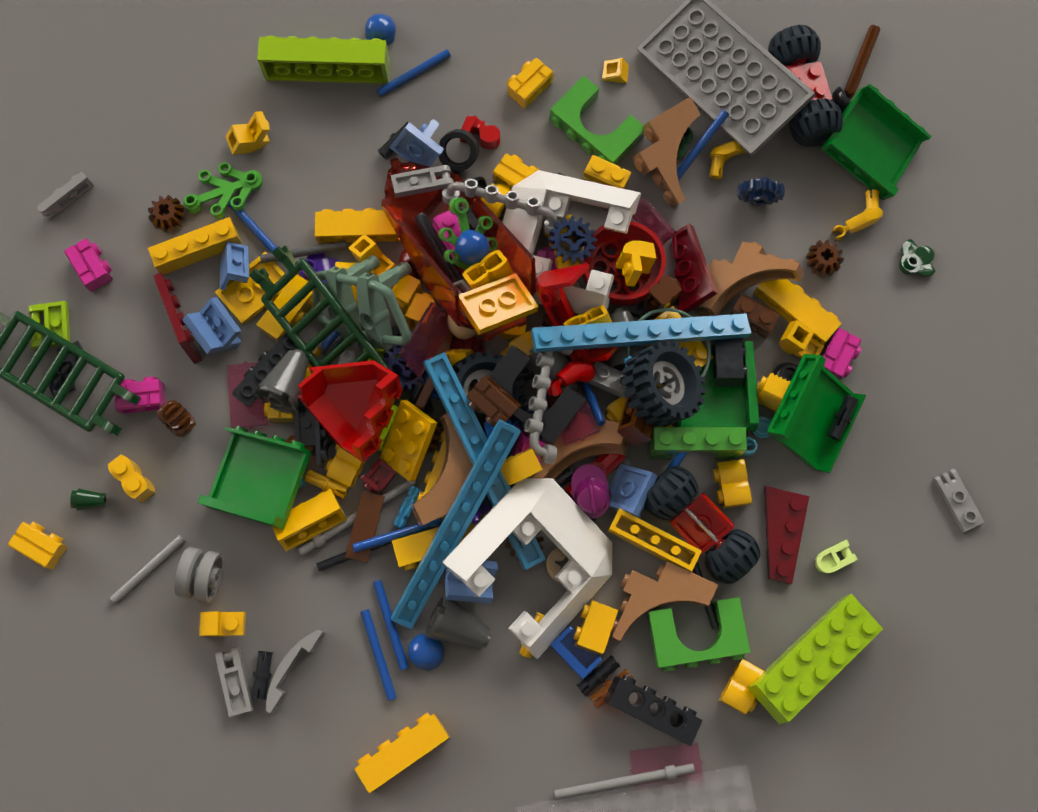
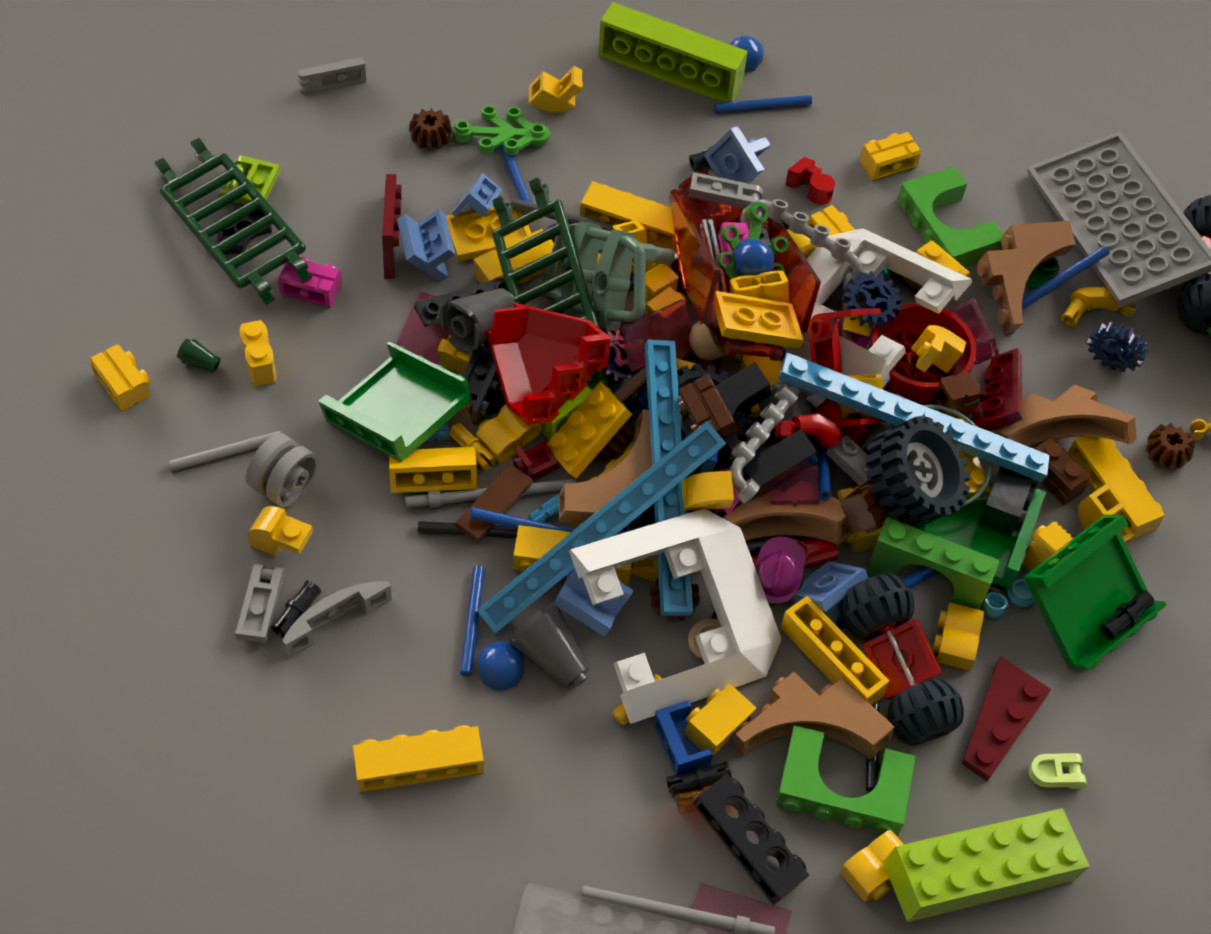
camera: 20 degrees right, 20 degrees down
(89, 265) = (322, 143): dark pink brick -> none
(176, 418) = (338, 313): reddish brown gear -> none
(193, 246) = (442, 166): yellow brick -> none
(378, 654) = (442, 646): blue piece -> none
(474, 150) = (782, 164): black tyre -> none
(615, 71) = (994, 181): yellow slope -> none
(840, 352) = (1154, 548): dark pink brick -> none

